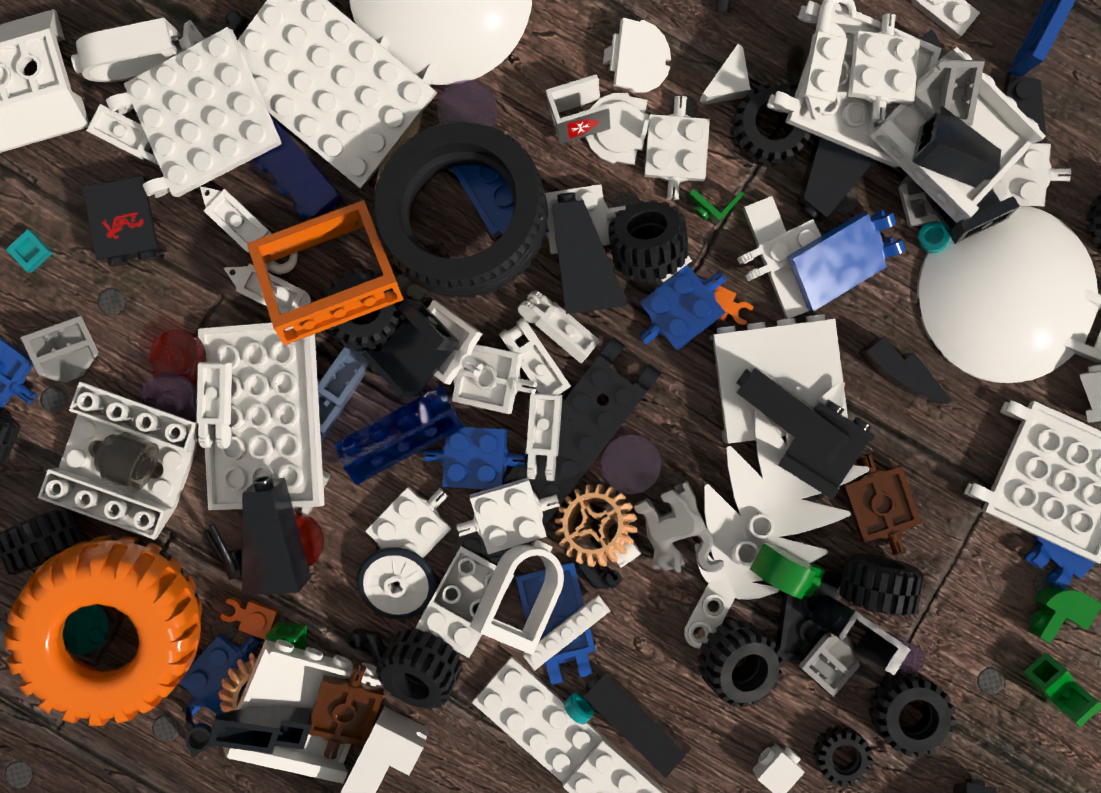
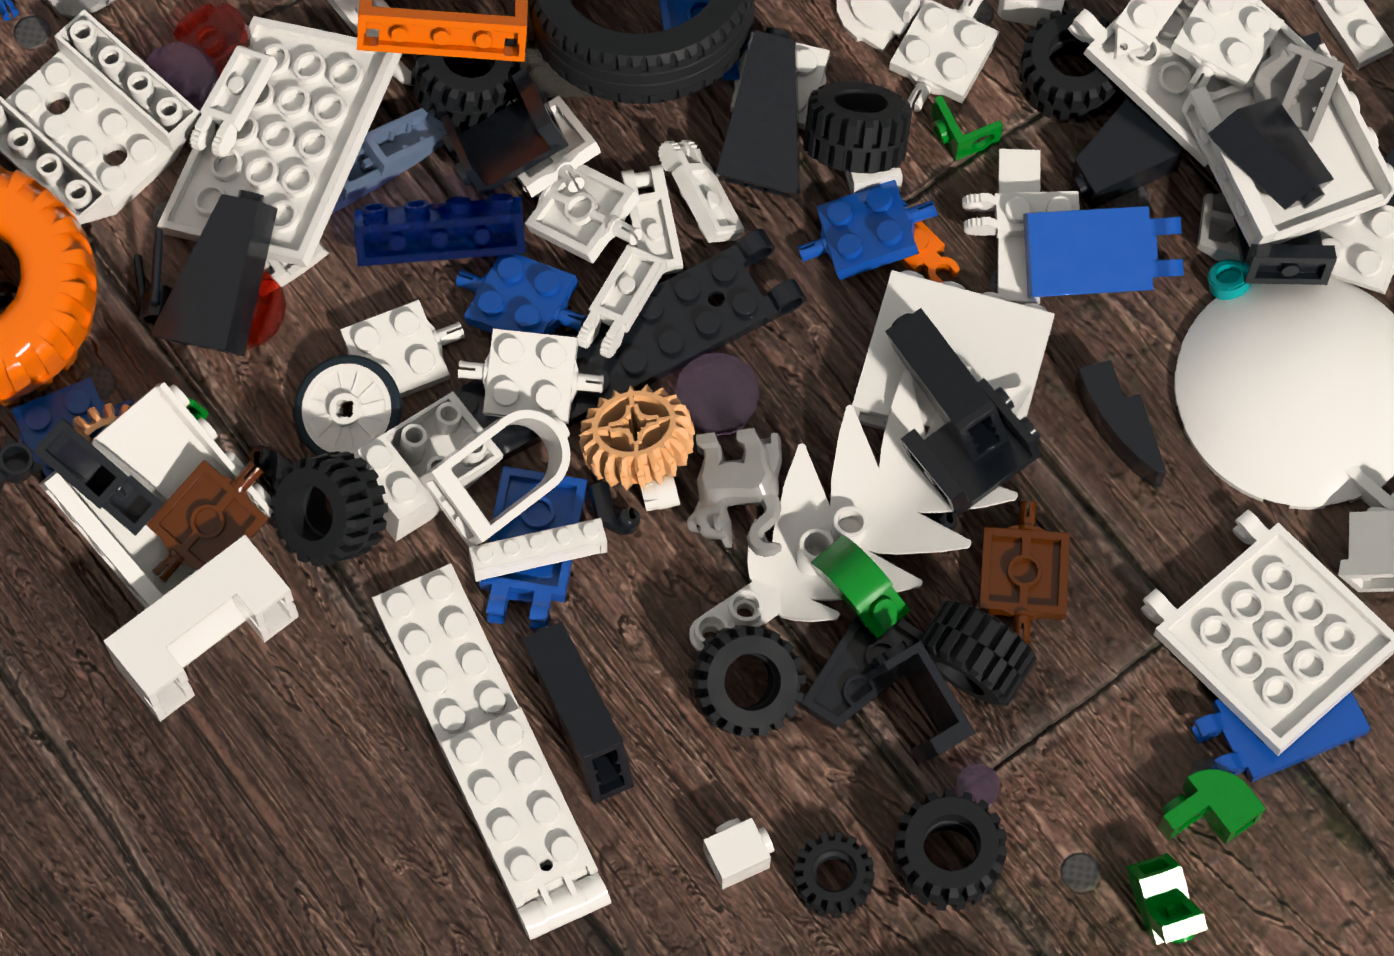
camera: 20 degrees right, 20 degrees down
(126, 460) = (96, 116): clear smoke piece -> none
(255, 619) = (138, 377): orange plate -> none
(578, 708) = (508, 660): teal tile -> none
(831, 663) = (868, 742): light grey slope -> none

